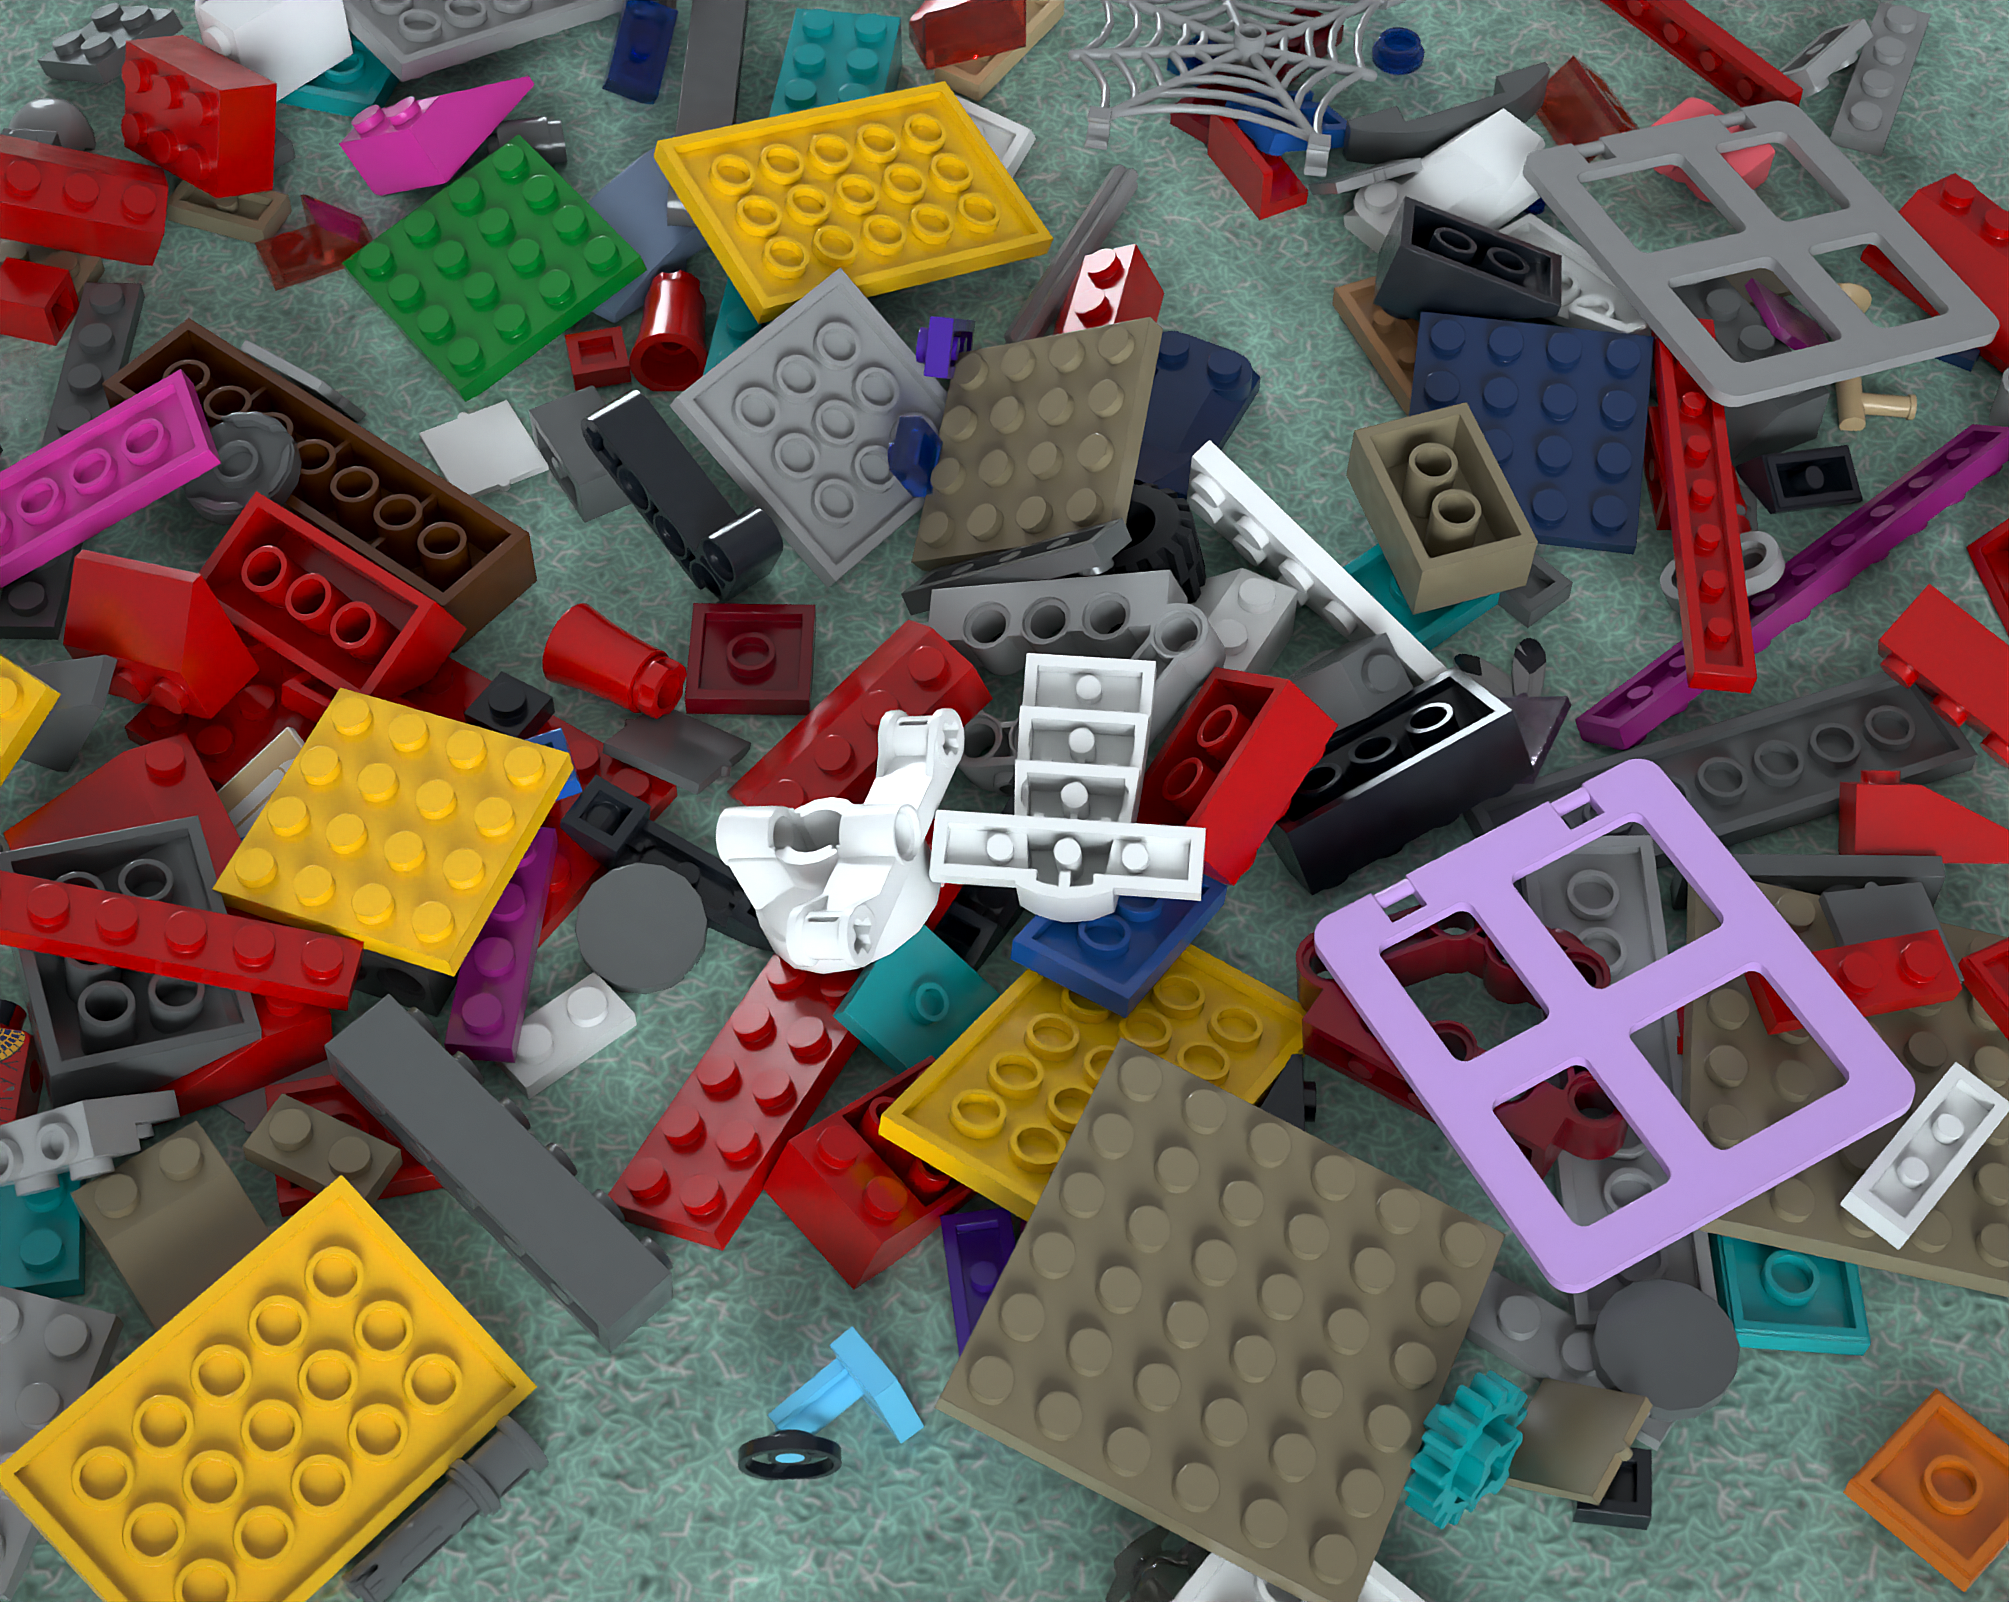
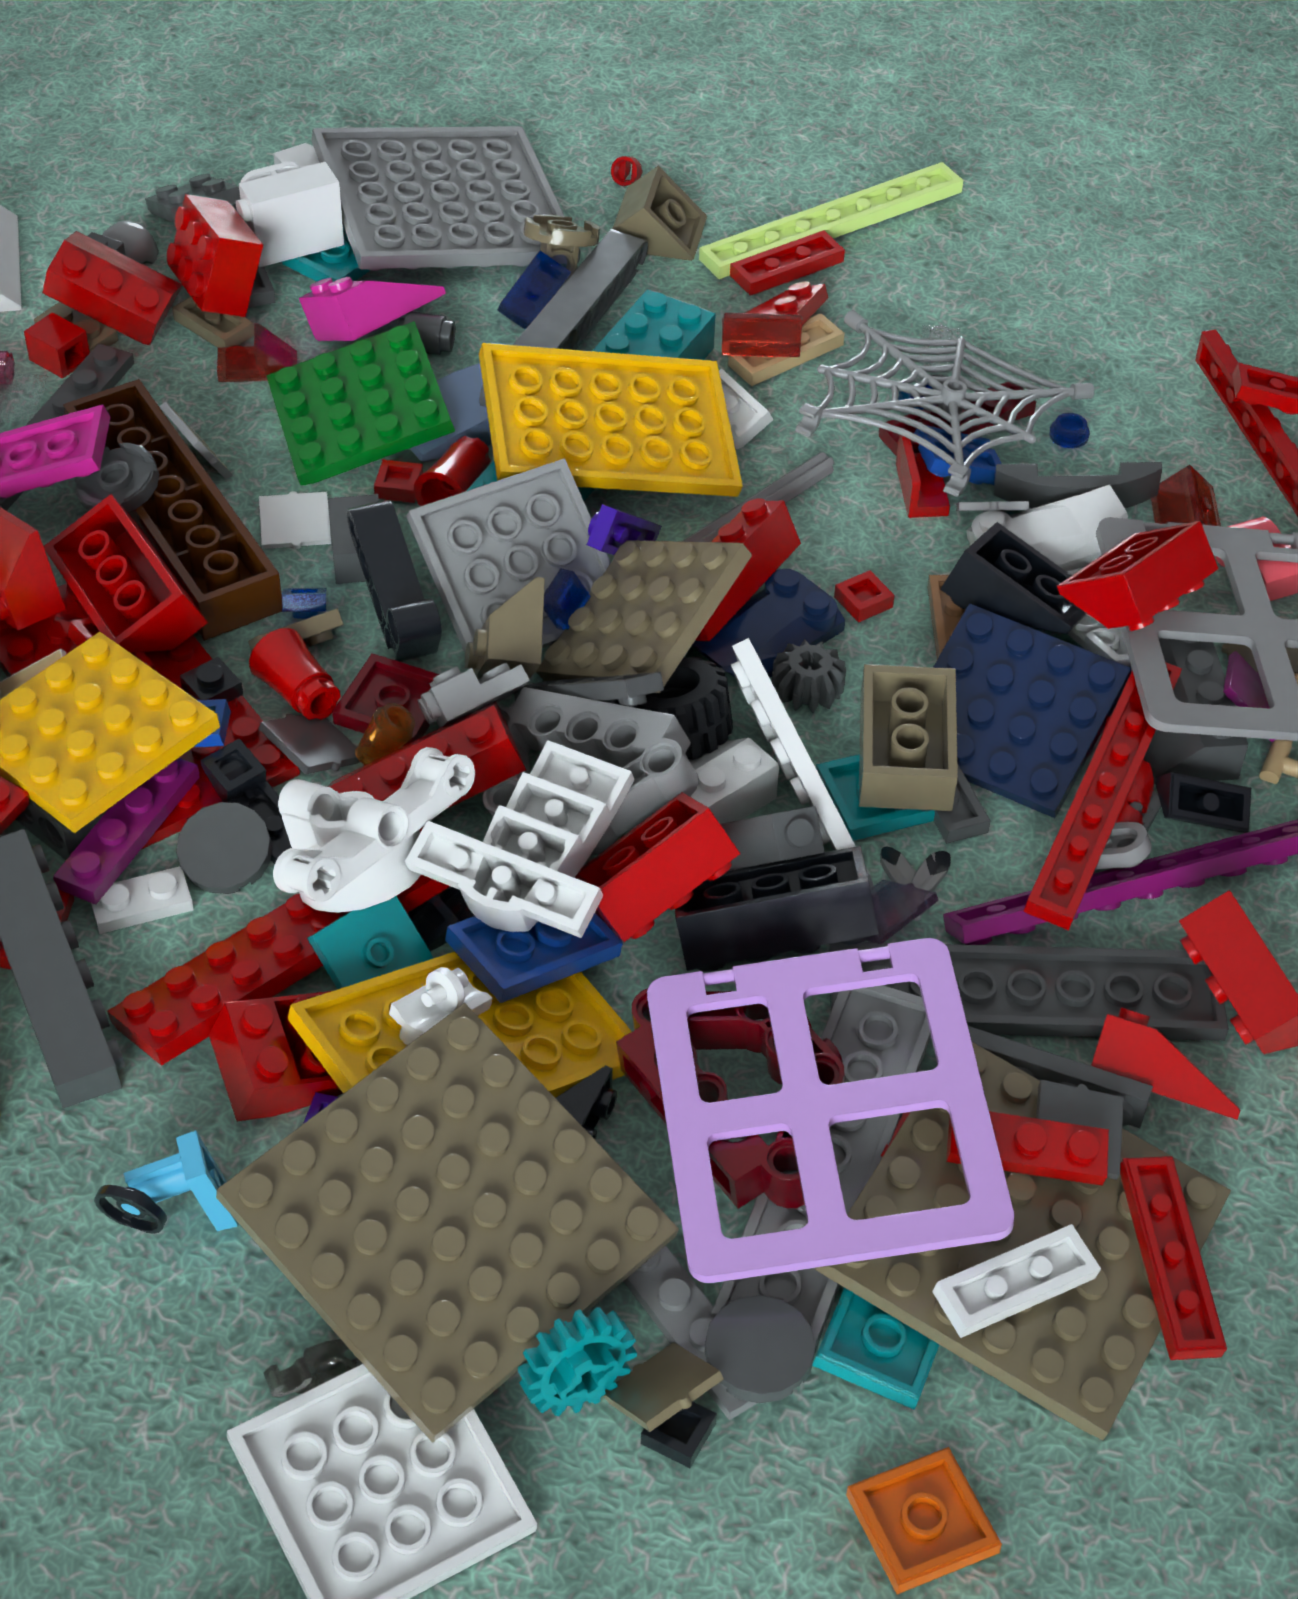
camera: 20 degrees right, 5 degrees down
(566, 559) = (304, 601): none -> clear blue plate
(599, 589) = (314, 629): none -> dark tan plate
(775, 707) = (386, 732): none -> clear orange cone
(861, 627) = (459, 693): none -> light grey plate
(881, 530) = (511, 633): none -> dark tan slope
(1073, 1056) = (430, 1004): none -> white hips
(1266, 455) = (808, 675): none -> dark grey gear
(1267, 338) = (864, 596): none -> red plate
(1622, 215) = (1142, 576): none -> red slope

